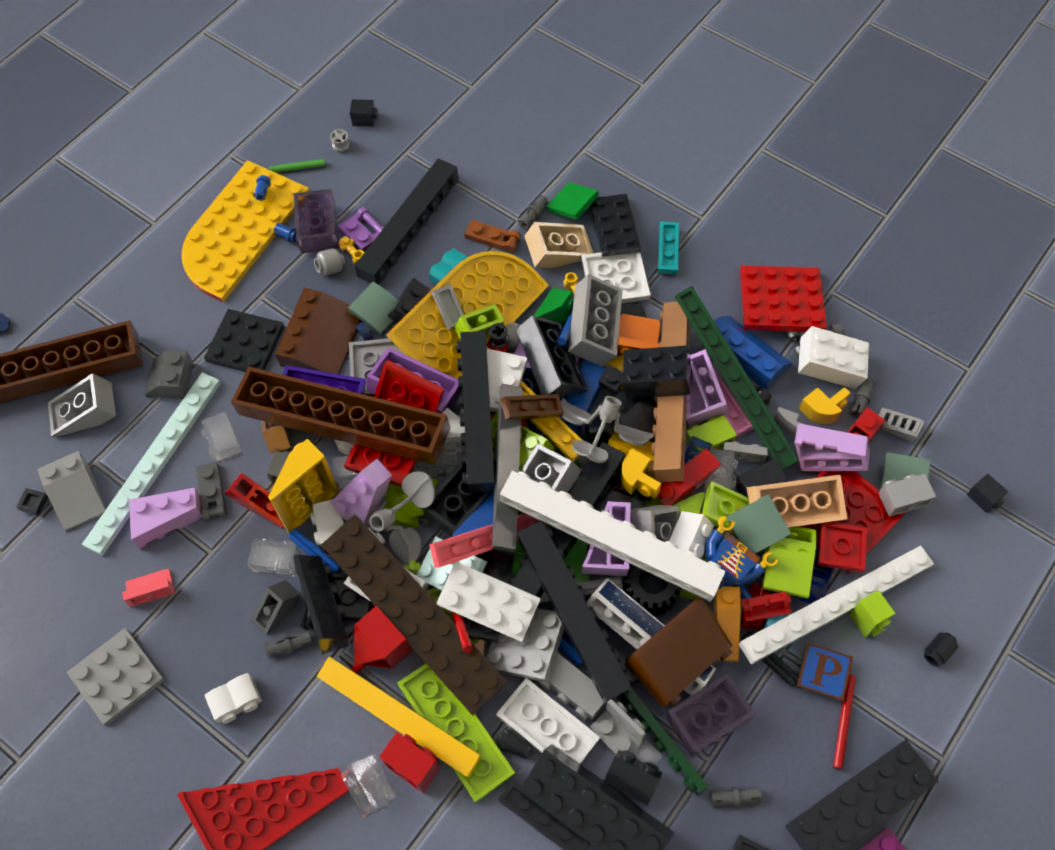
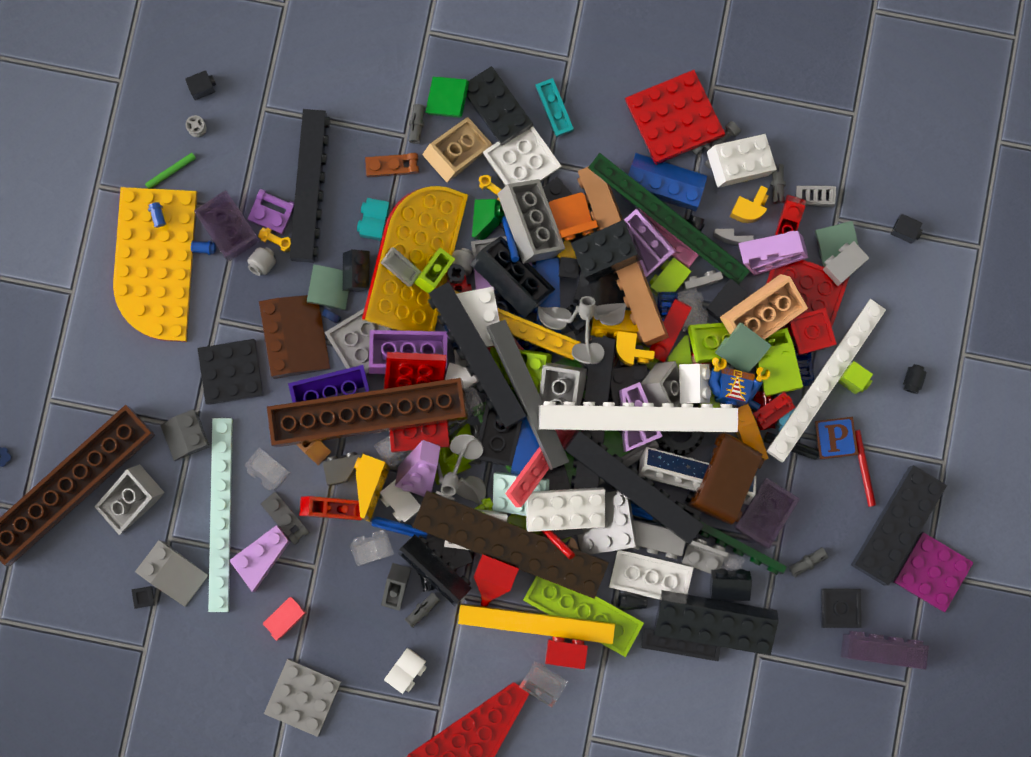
camera: 30 degrees left, 20 degrees up
(531, 406) = (522, 334): reddish brown plate -> none

